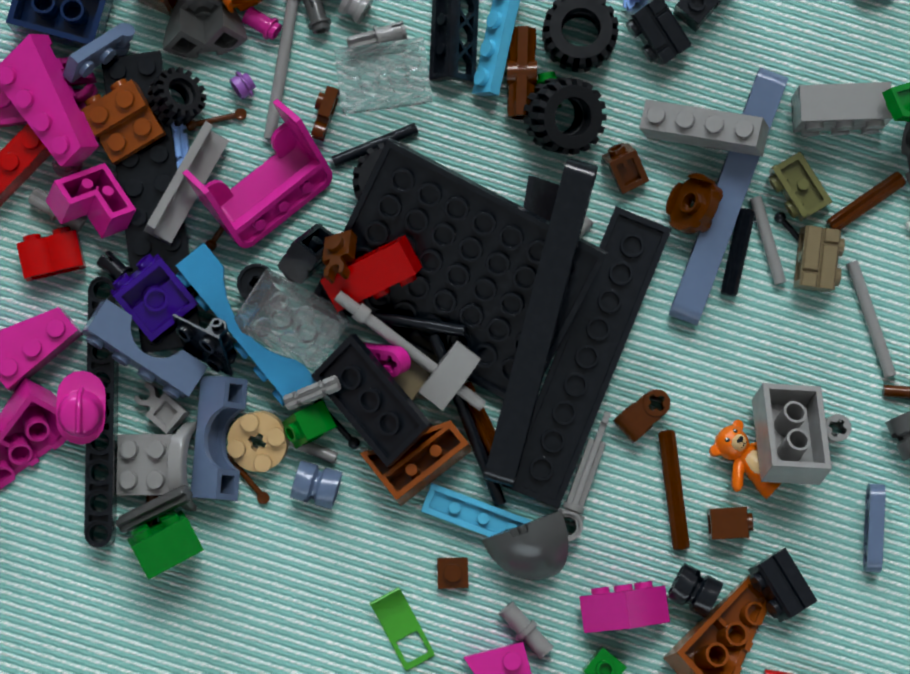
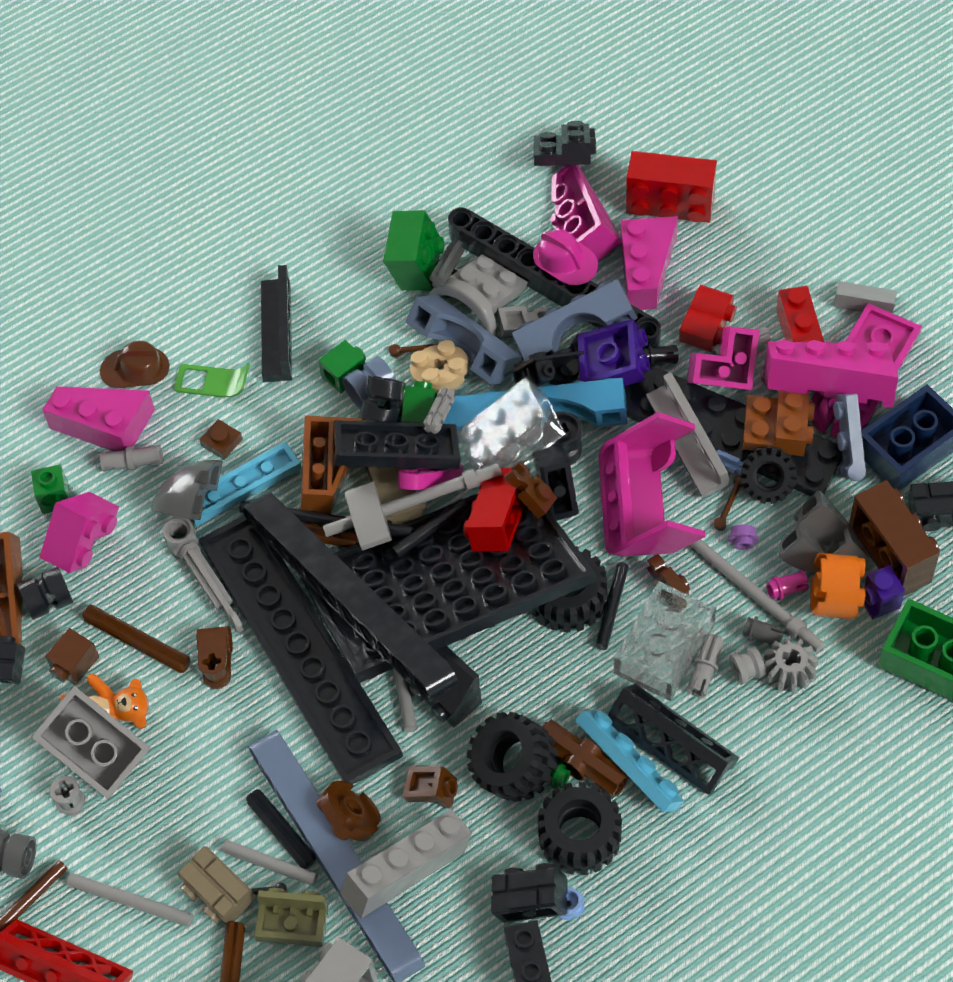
camera: 130 degrees right, 25 degrees down
(313, 522) = (341, 362): none -> green brick
(315, 614) = (276, 327): none -> black fence
(332, 452) = (384, 389): none -> black wheel

